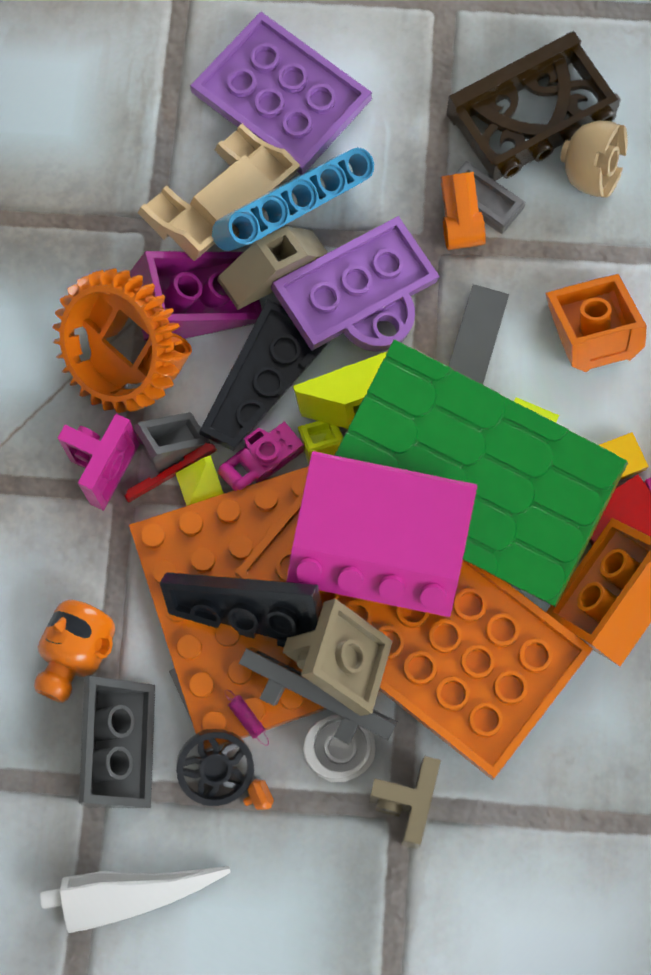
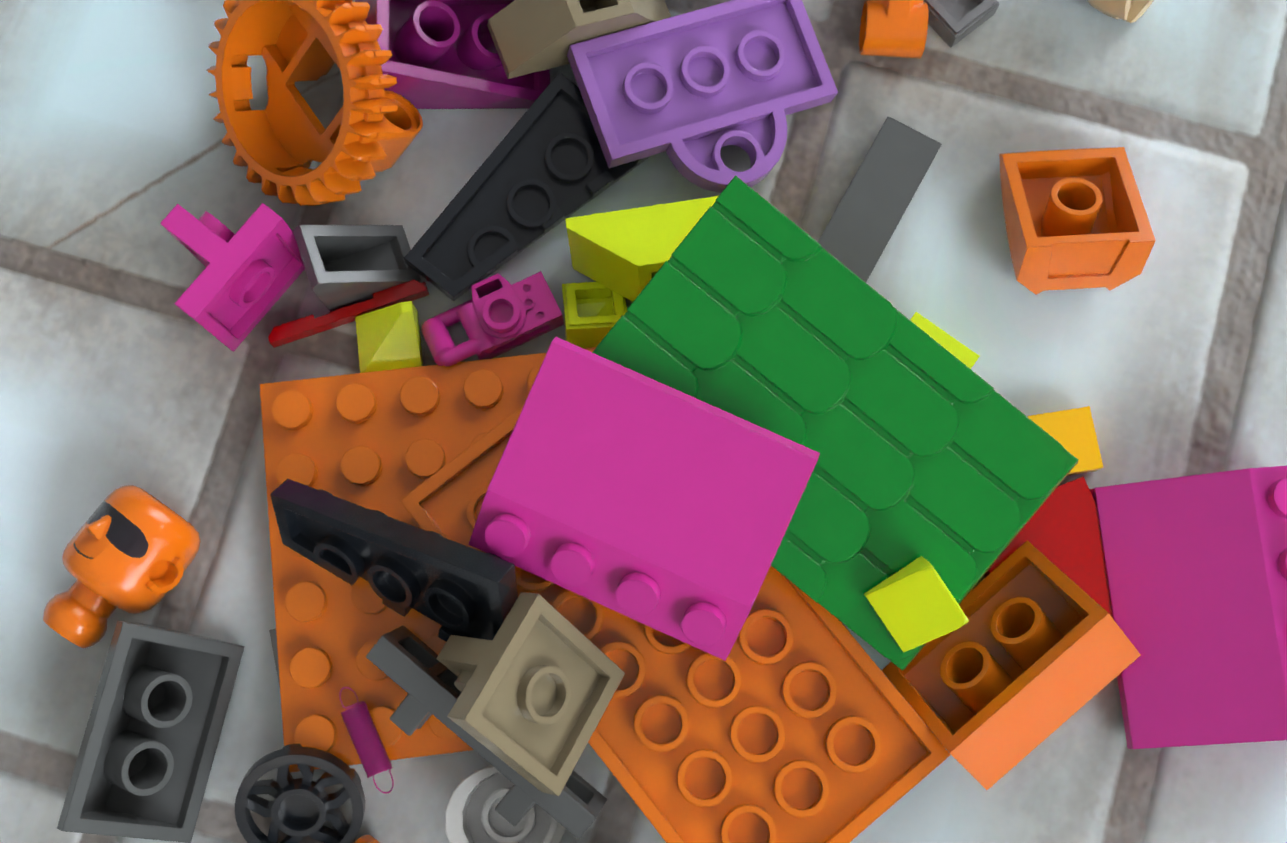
camera: 10 degrees right, 5 degrees up
(552, 563) = (916, 605): none -> neon yellow slope

